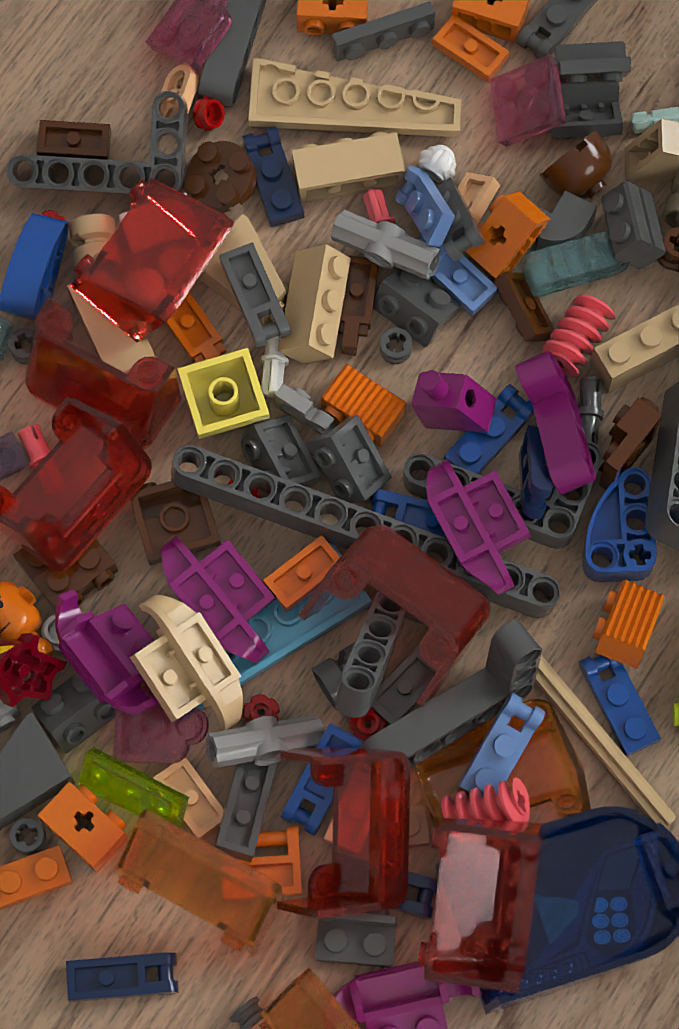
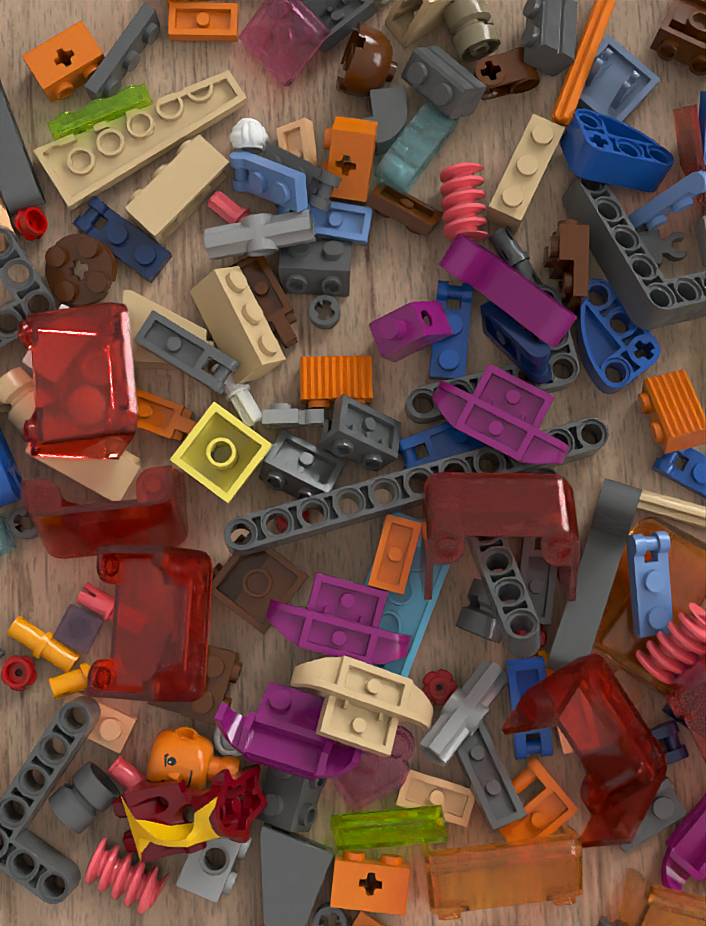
camera: 35 degrees left, 10 degrees up
(331, 62) = (100, 110): none -> clear neon green plate

